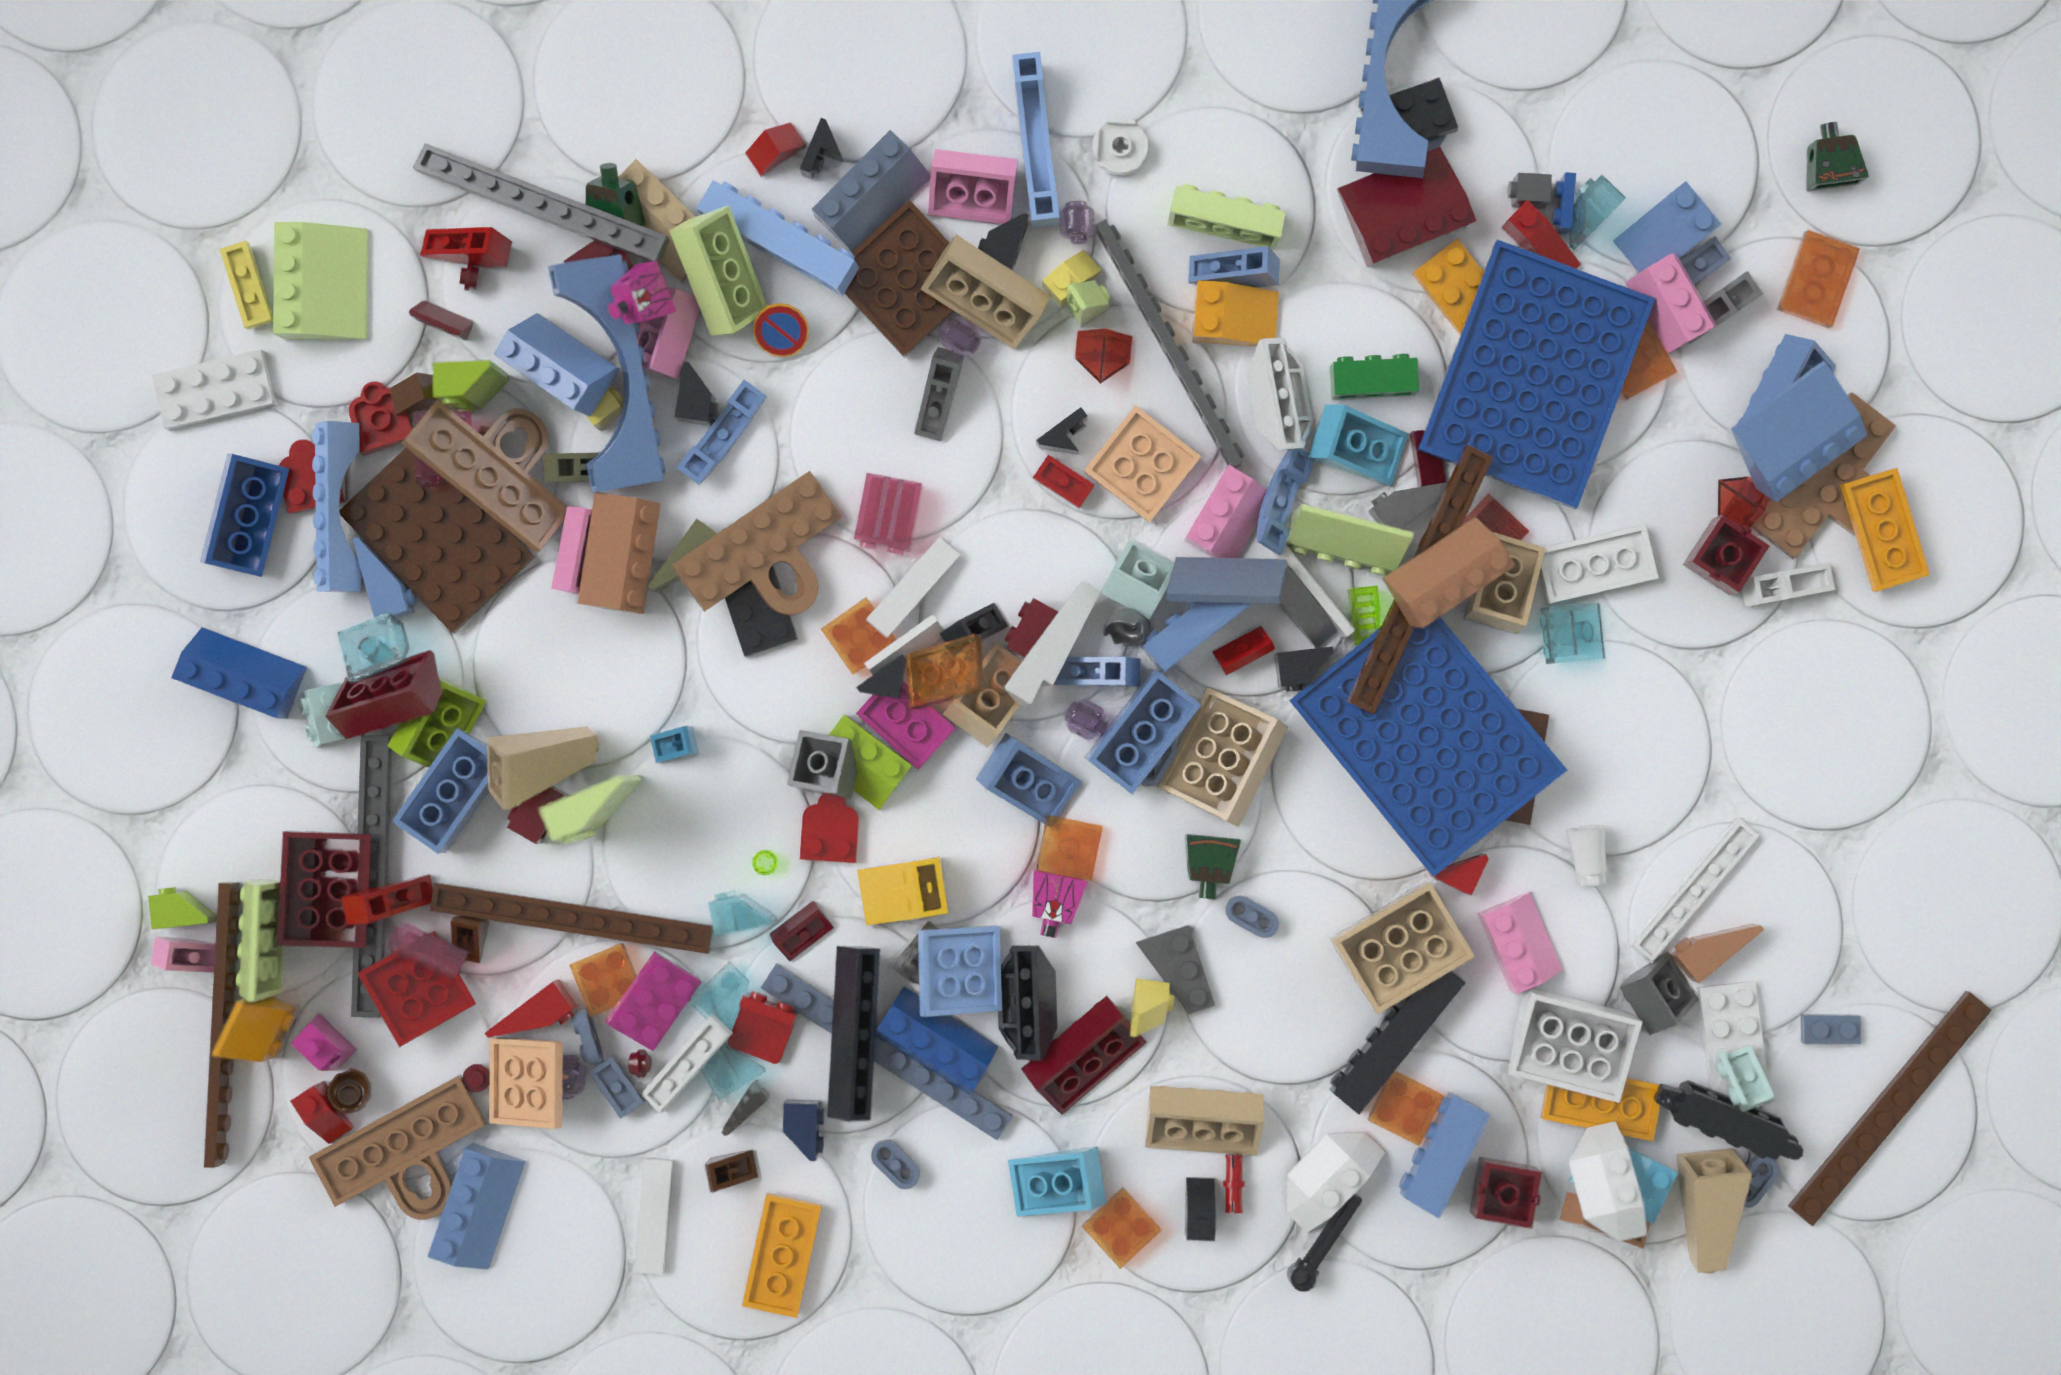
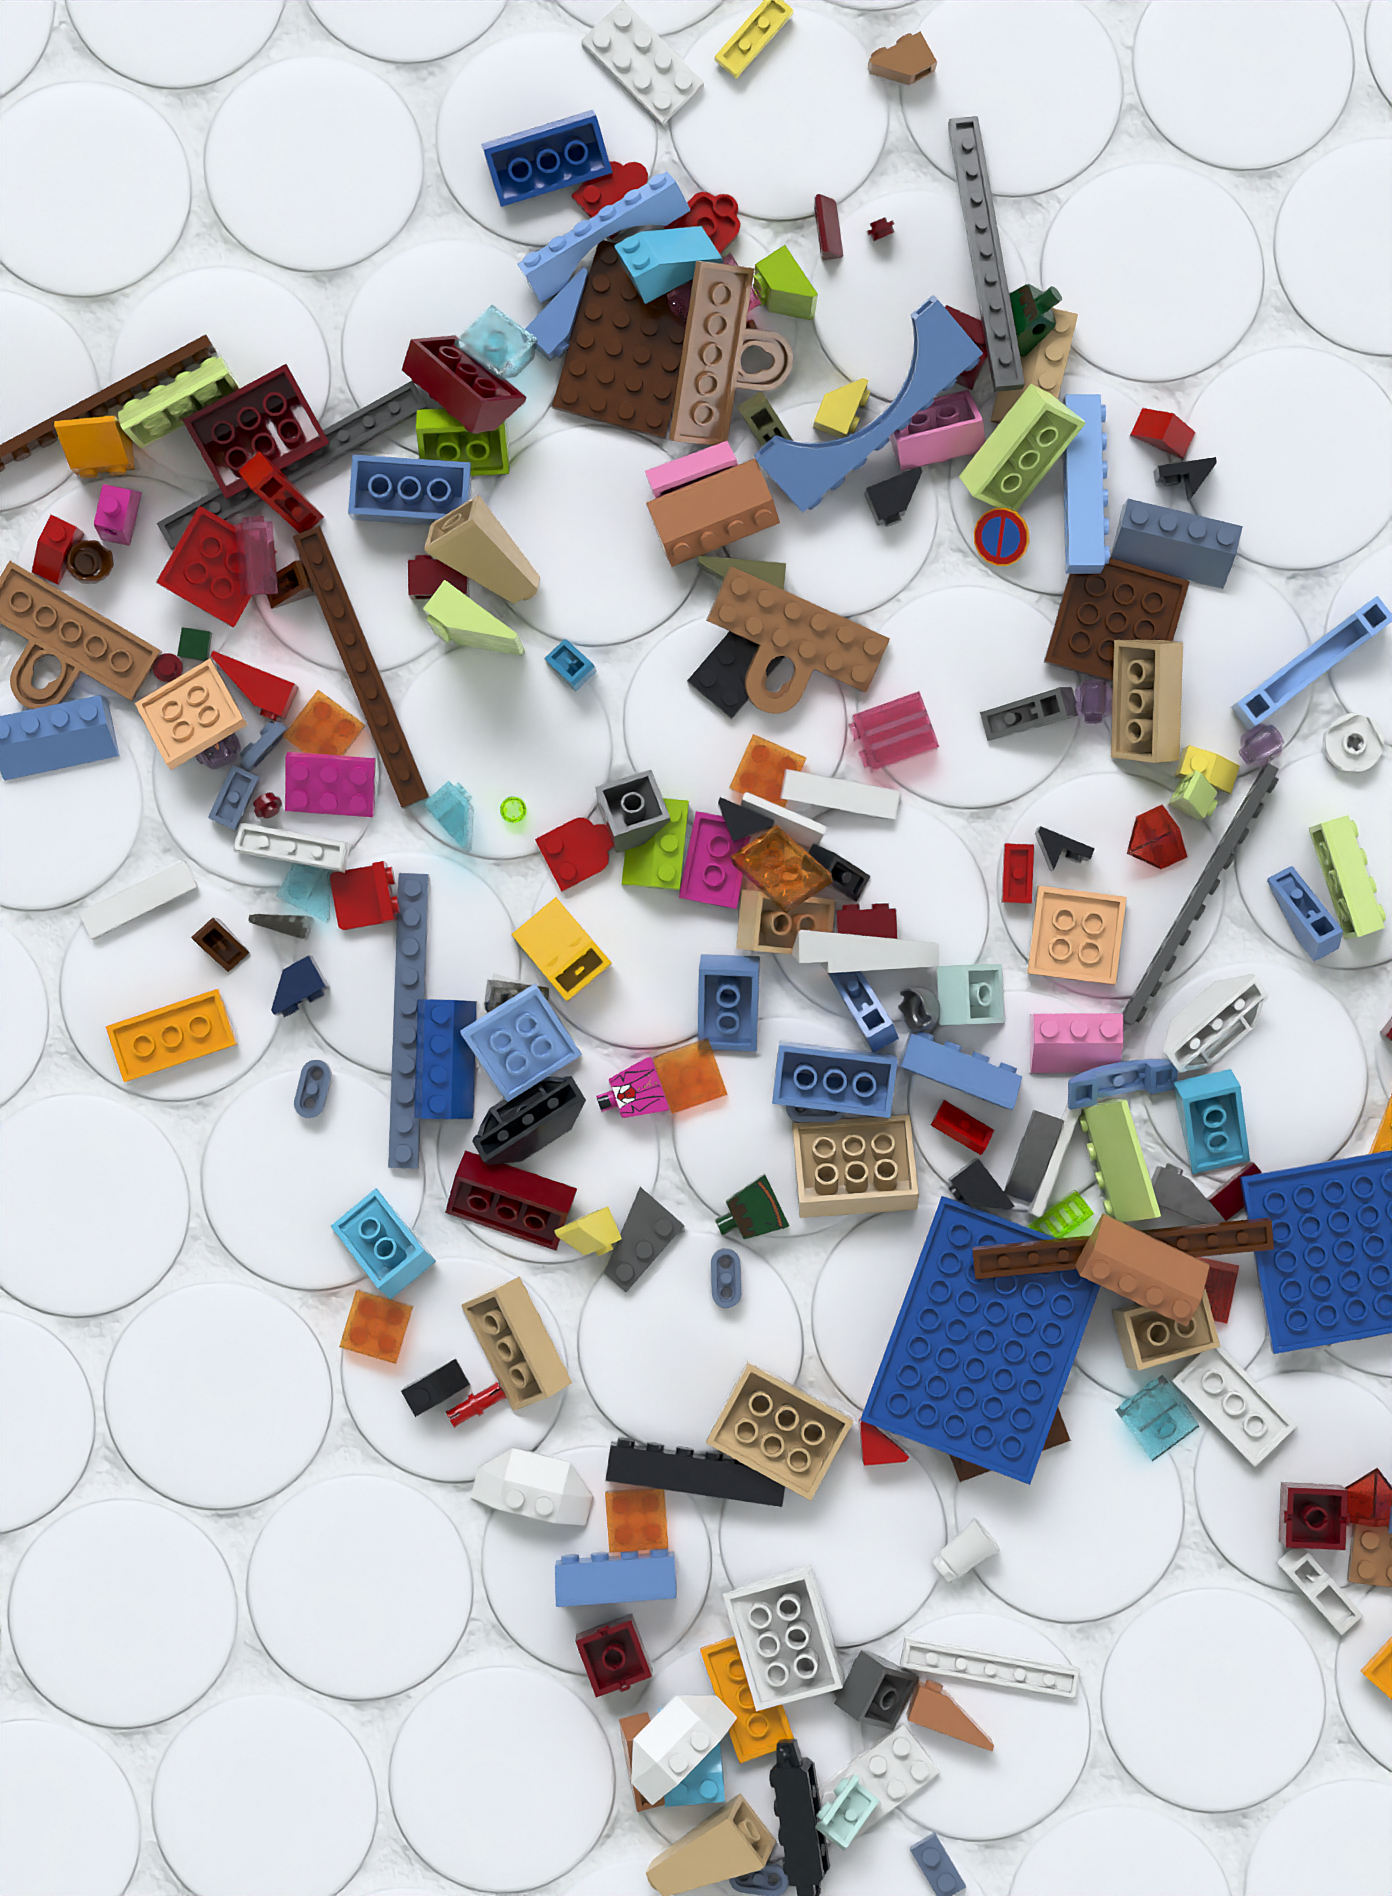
camera: 60 degrees right, 0 degrees up
(177, 909) = (160, 311): lime slope -> none
(183, 954) = (123, 341): bright pink slope -> none
(240, 673) = (403, 239): blue slope -> none
(315, 705) = (414, 324): light aqua bracket -> none
(320, 281) = (796, 98): yellowish green slope -> none
(344, 175) = (905, 61): none -> medium nougat slope
(385, 468) = (664, 258): none -> medium azure slope
(413, 394) = (746, 243): reddish brown slope -> none
(470, 1044) = (194, 644): none -> dark green tile
(477, 245) = (913, 219): red slope -> none
(557, 363) = (851, 355): medium blue slope -> none
(641, 294) = (957, 393): dark pink torso -> none
(722, 995) = (371, 842): clear light blue wing -> none
(723, 433) = (877, 540): medium blue slope -> none
(801, 931) = (471, 879): dark red slope -> none
(853, 1033) = (408, 980): black brick -> none
(972, 186) = (1236, 631): bright pink slope -> none
(1006, 240) = (1204, 690): black slope -> none
(1086, 719) = (814, 1022): clear purple head -> none
(1227, 580) = (1017, 1074): sand blue tile -> none
(1233, 314) = (1263, 936): light orange slope -> none
(1322, 1245) = (470, 1518): black axle -> none
(1374, 377) = (1282, 1098): green brick -> none
(1520, 943) = (847, 1536): bright pink slope -> none

